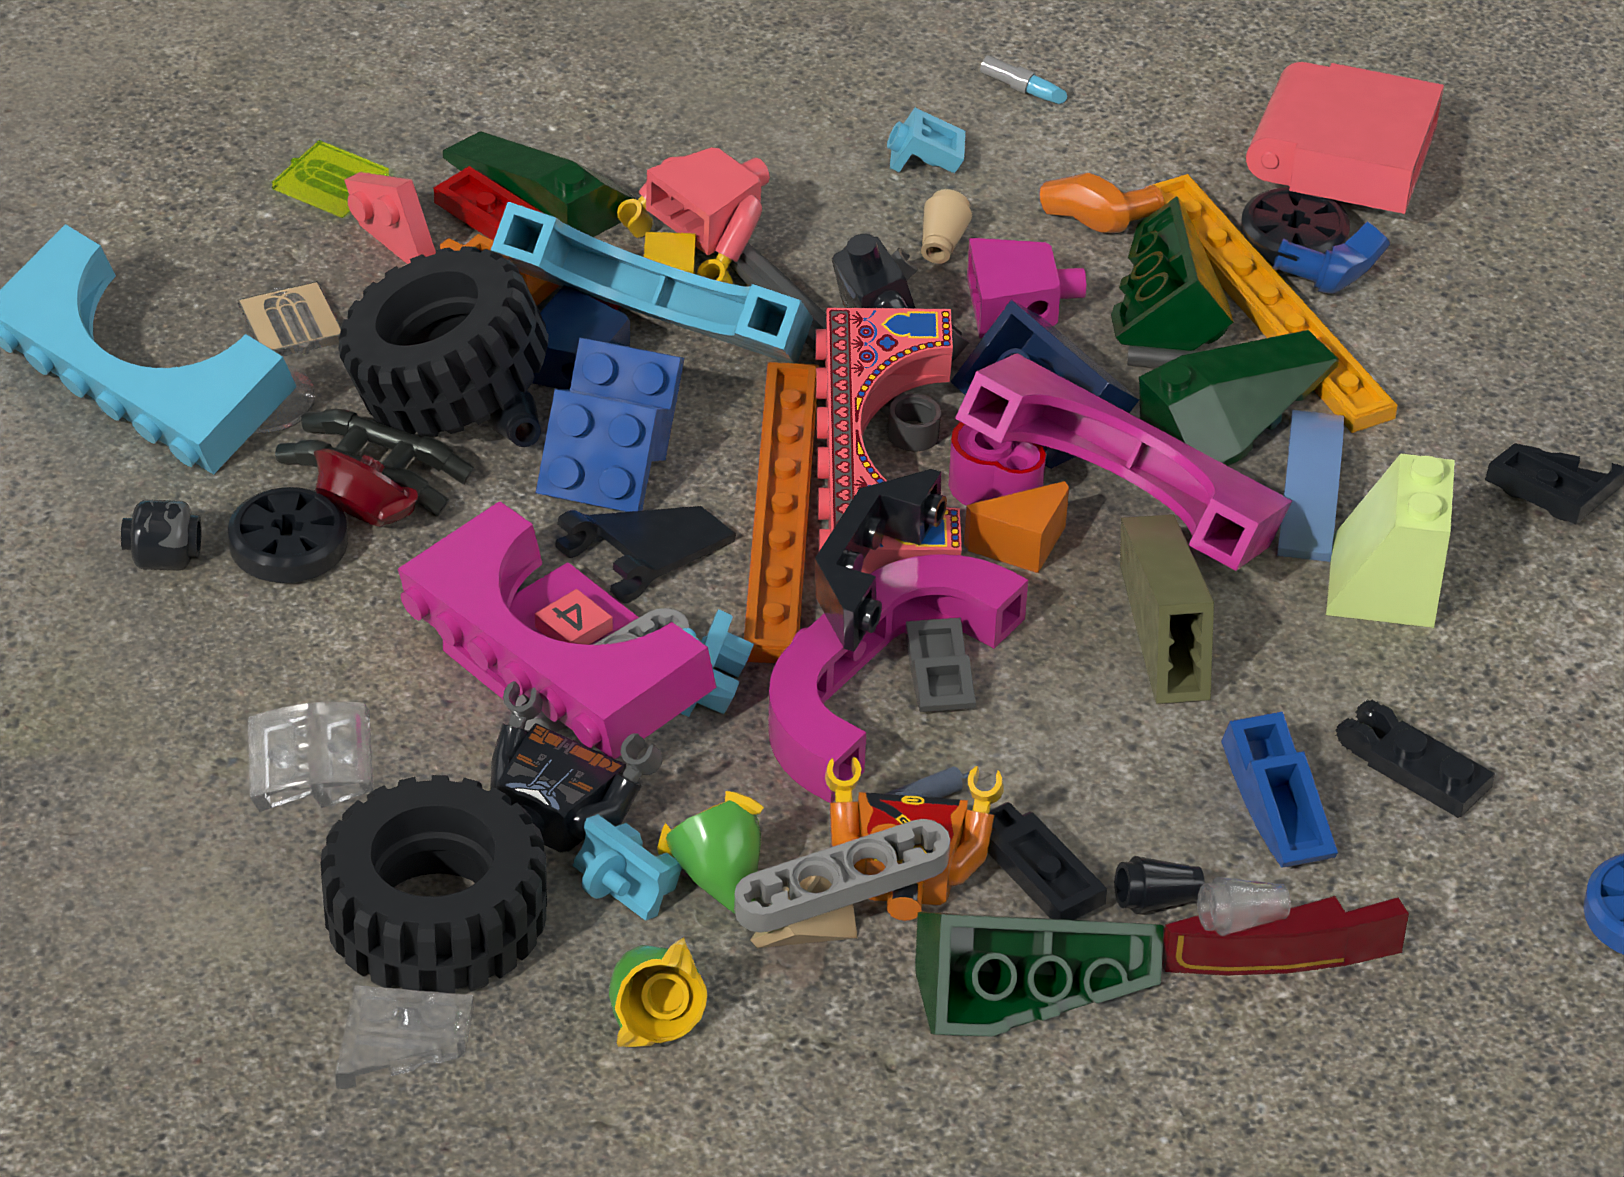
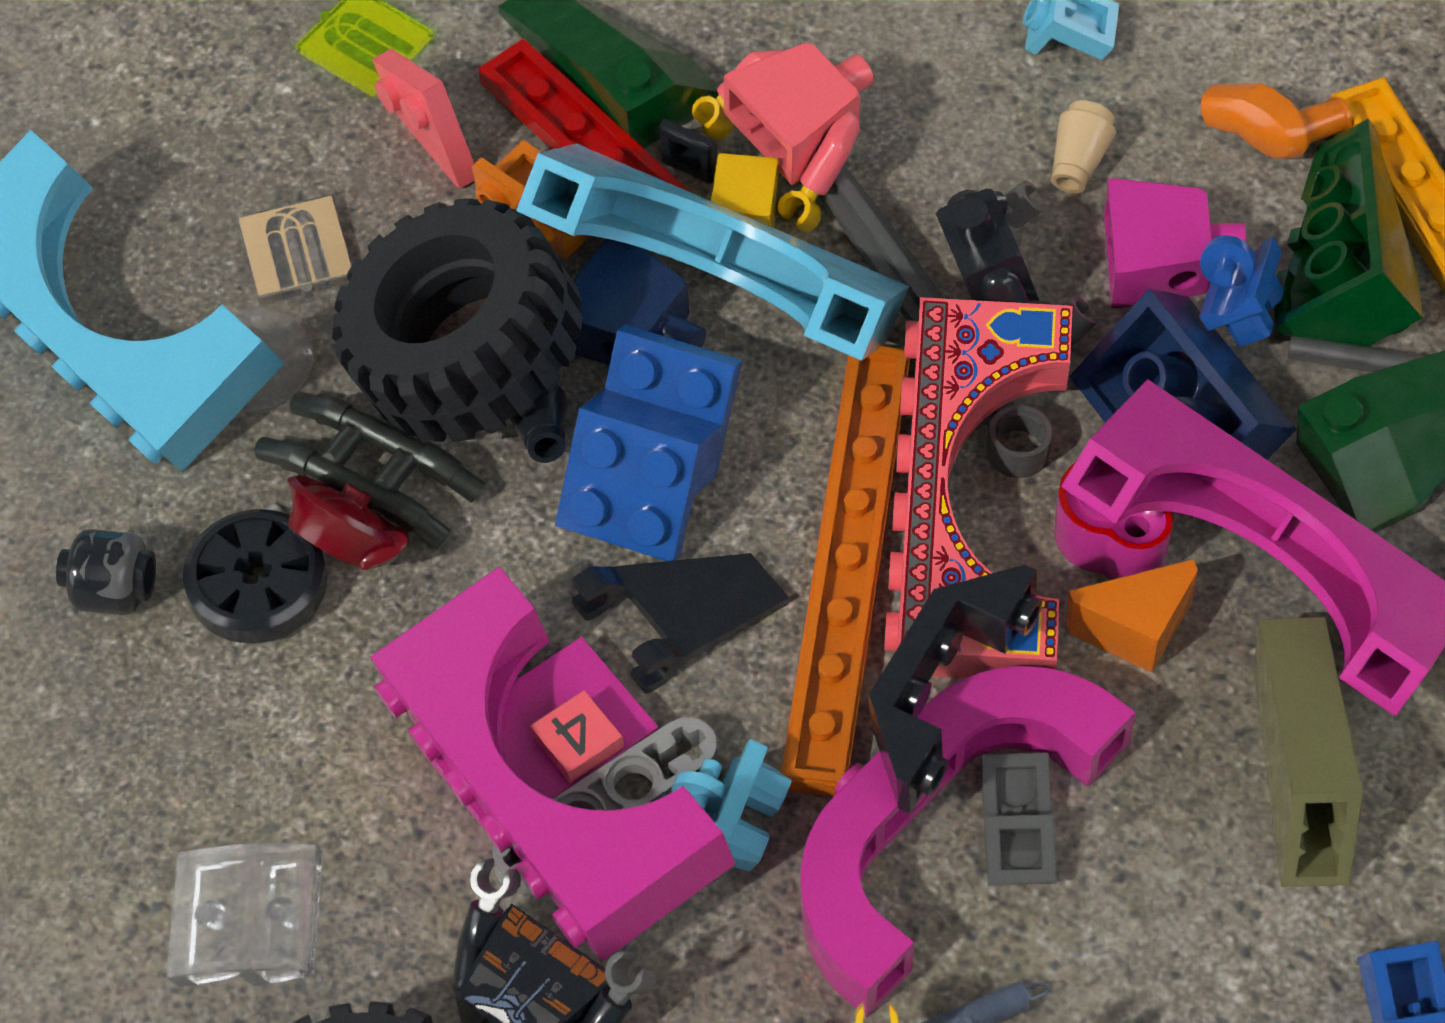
camera: 10 degrees right, 15 degrees up
(618, 232) = (688, 151): none -> black slope
(1084, 304) = (1240, 287): none -> blue hips

